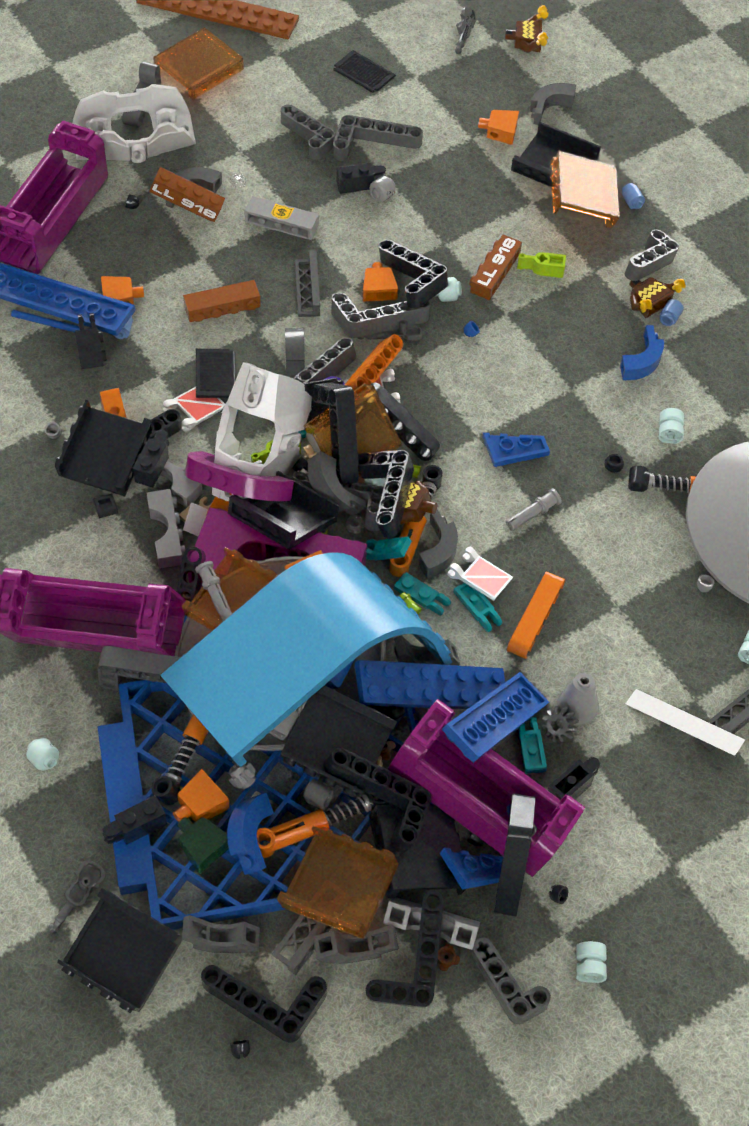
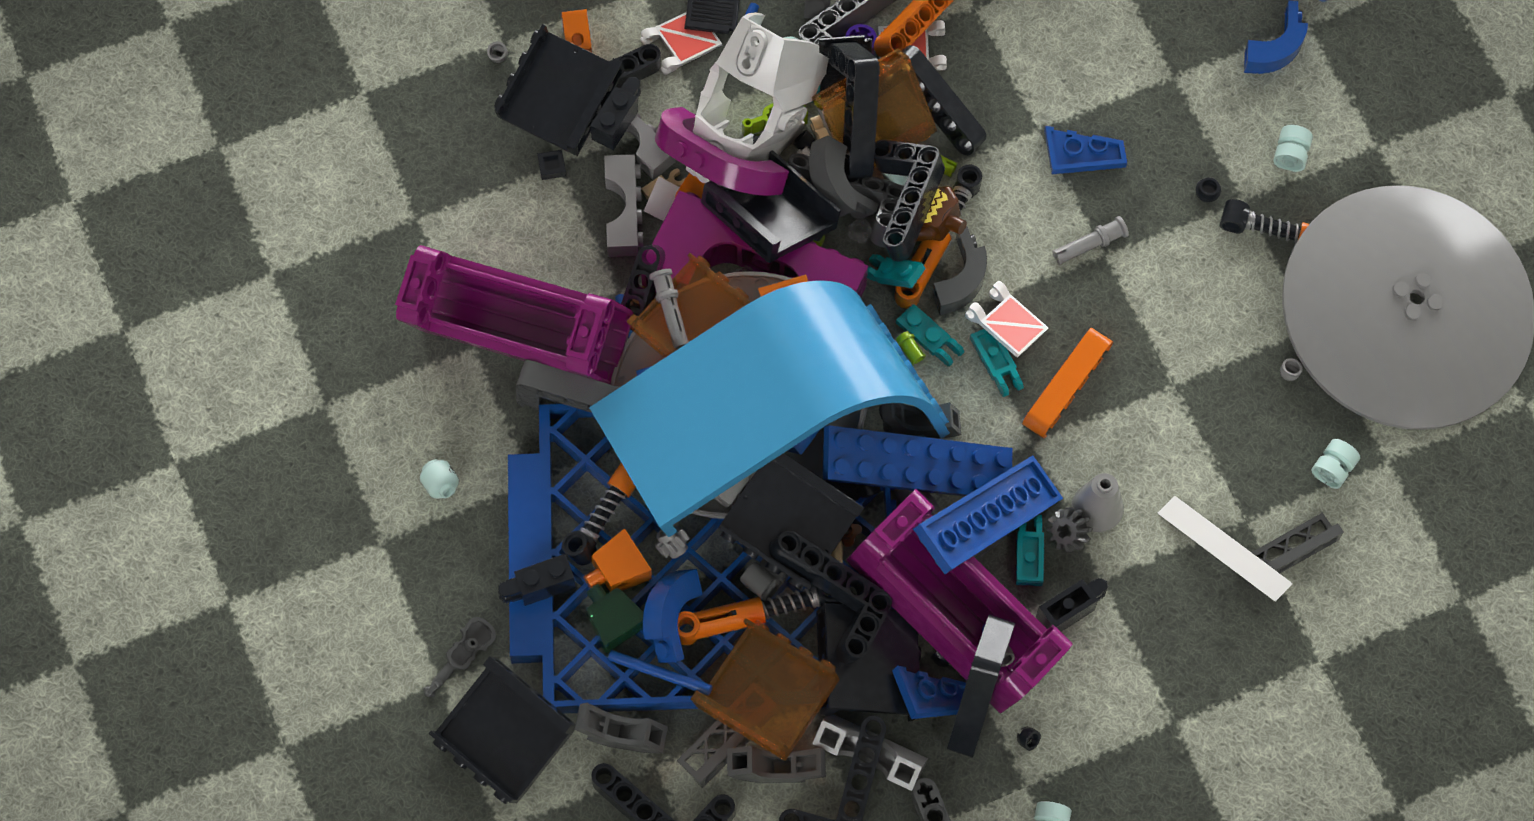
camera: 10 degrees right, 10 degrees up
(247, 882) = (659, 672): none -> blue bar
(453, 959) = (888, 797): reddish brown plate -> none

